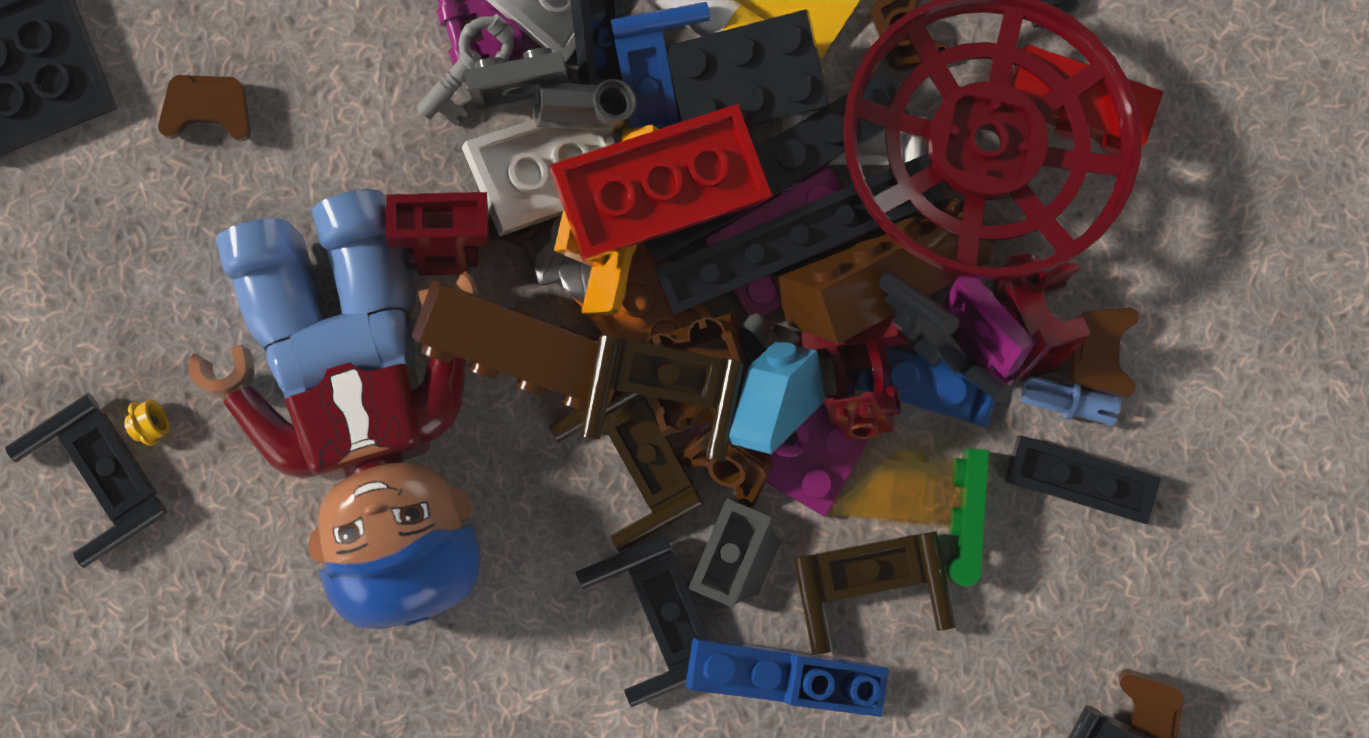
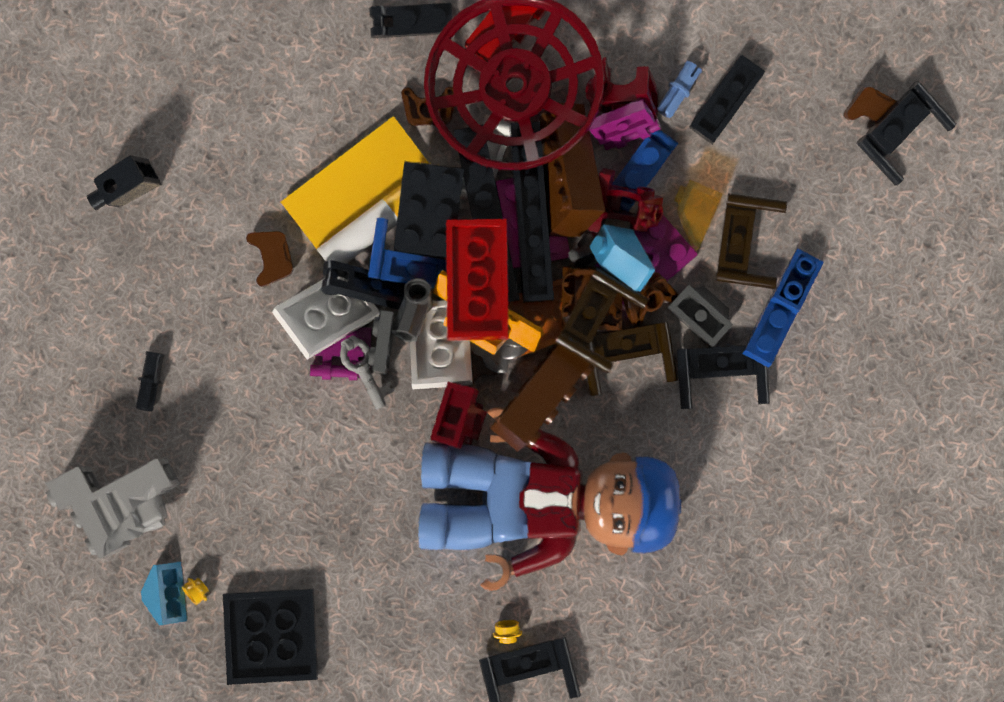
camera: 70 degrees left, 0 degrees up
(207, 101) = (328, 533): reddish brown piece -> none
(931, 326) = (619, 154): black plate -> none
(968, 518) = (726, 172): green plate -> none
(1097, 359) = (662, 66): reddish brown piece -> none

